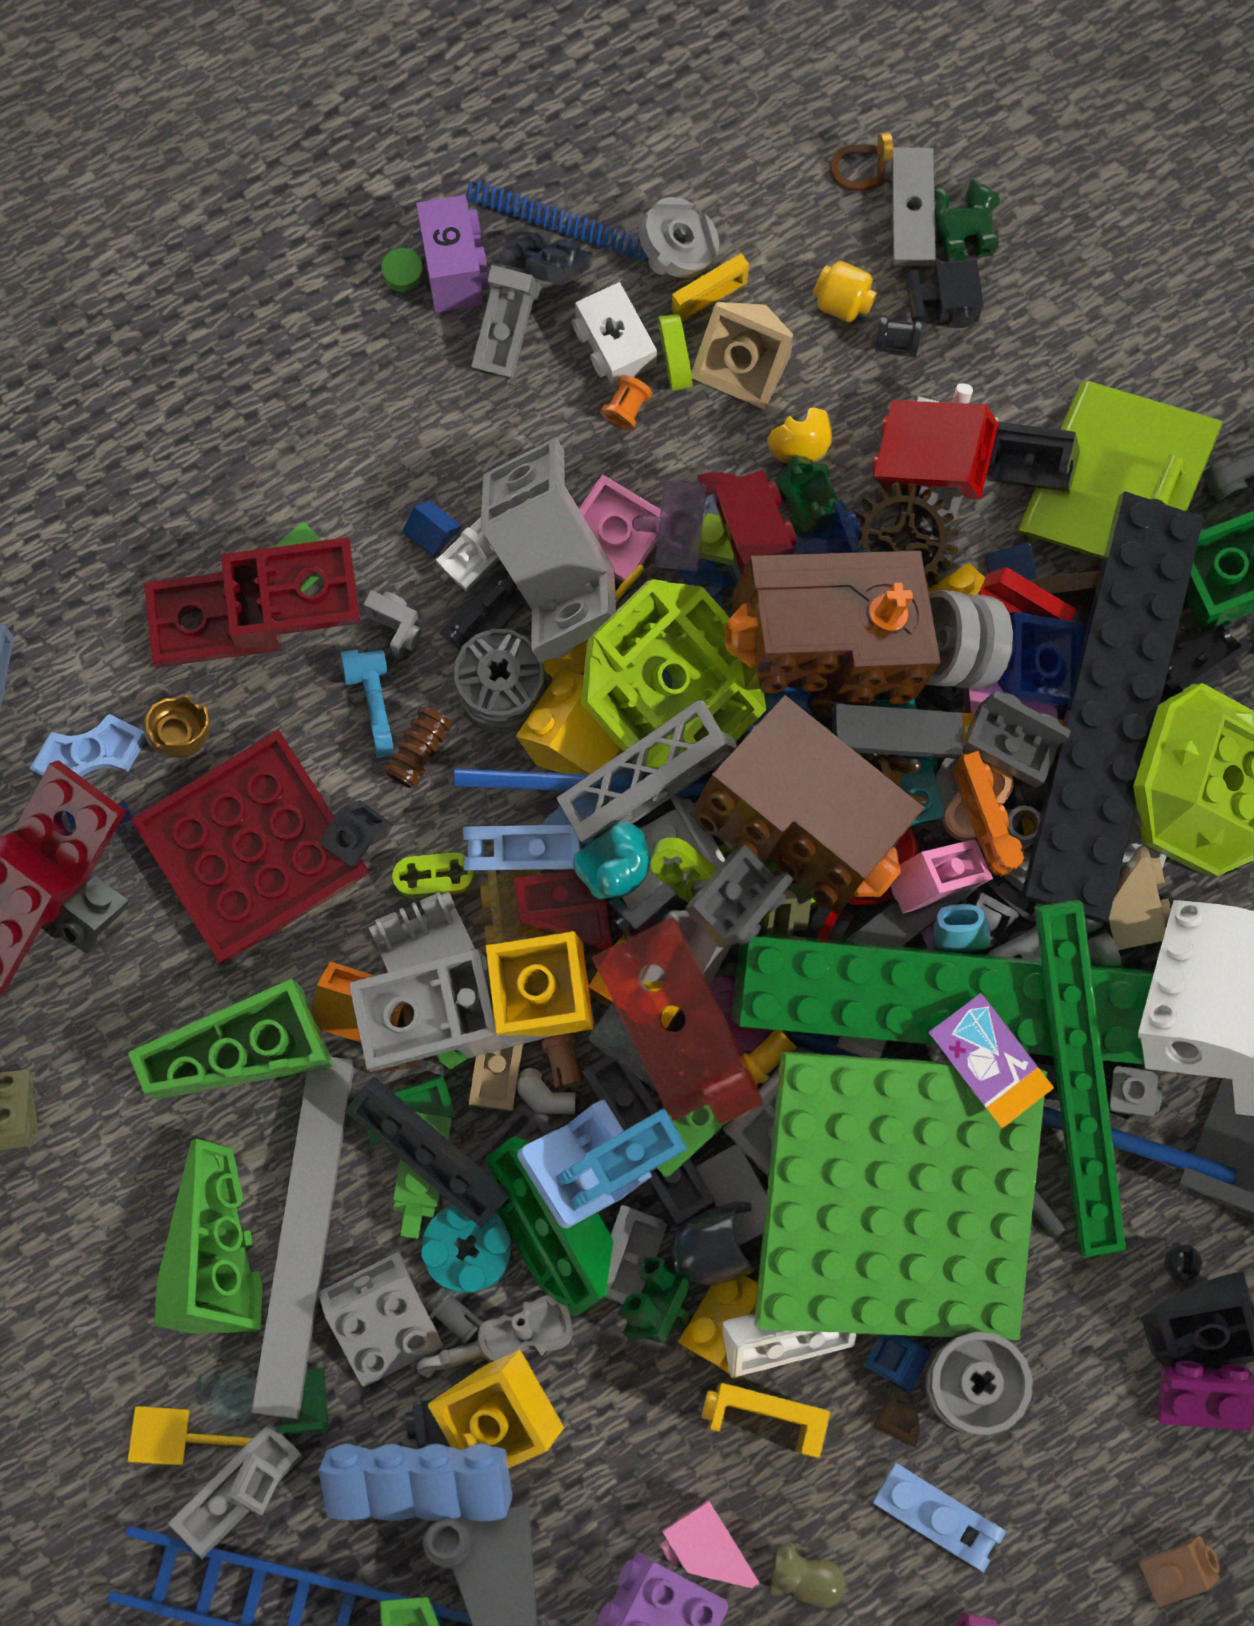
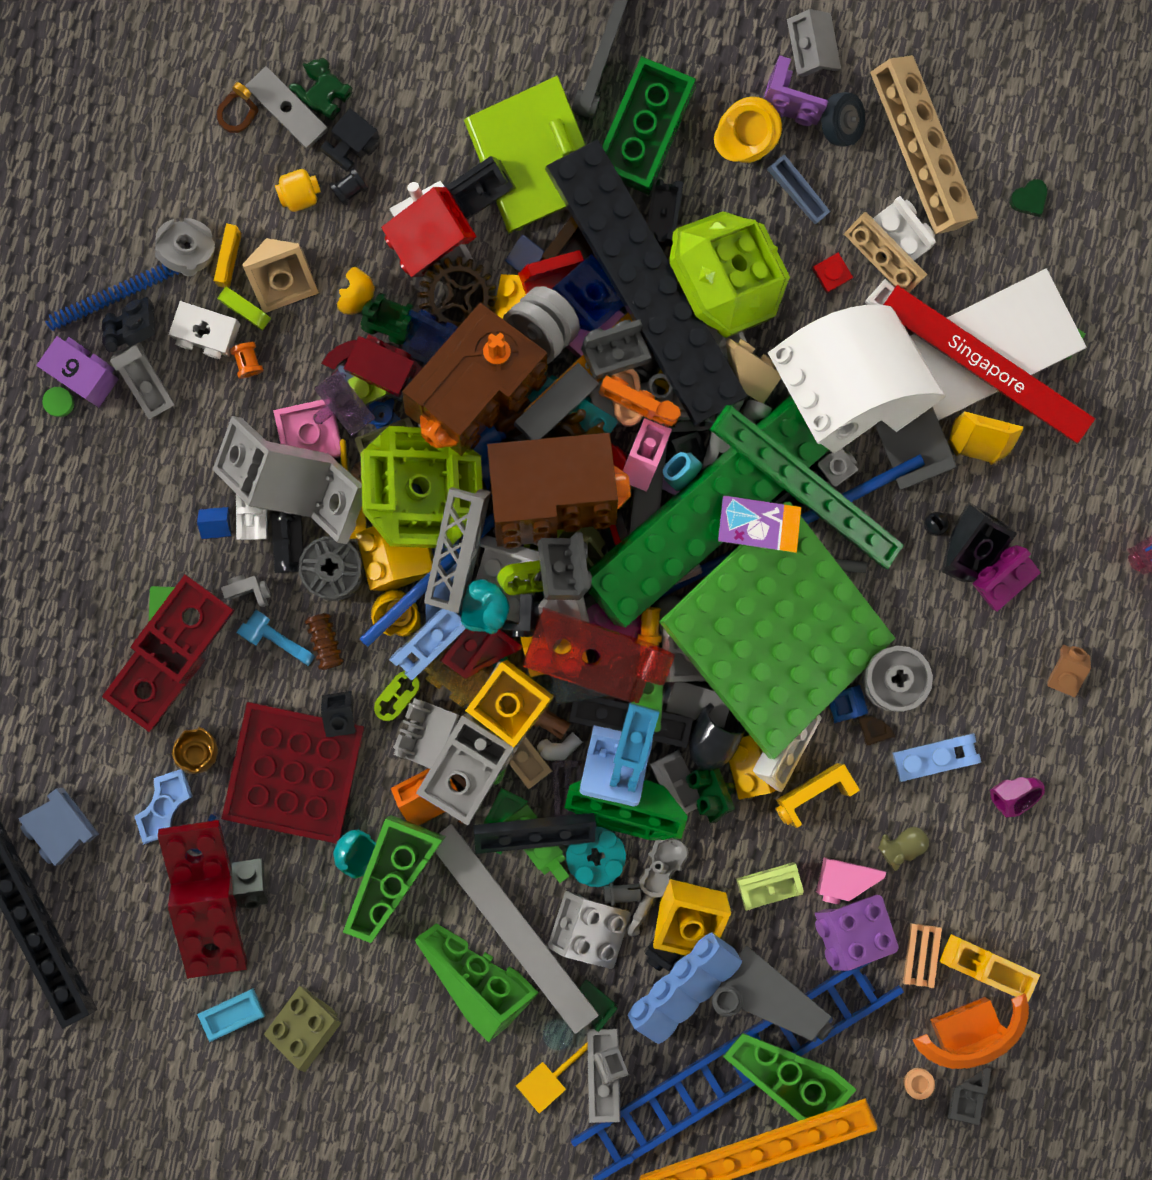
camera: 45 degrees left, 10 degrees up
(215, 980) = (348, 859): none -> teal hair
(517, 806) = (406, 623): none -> yellow hair
(618, 1471) = (770, 886): none -> yellowish green hinge

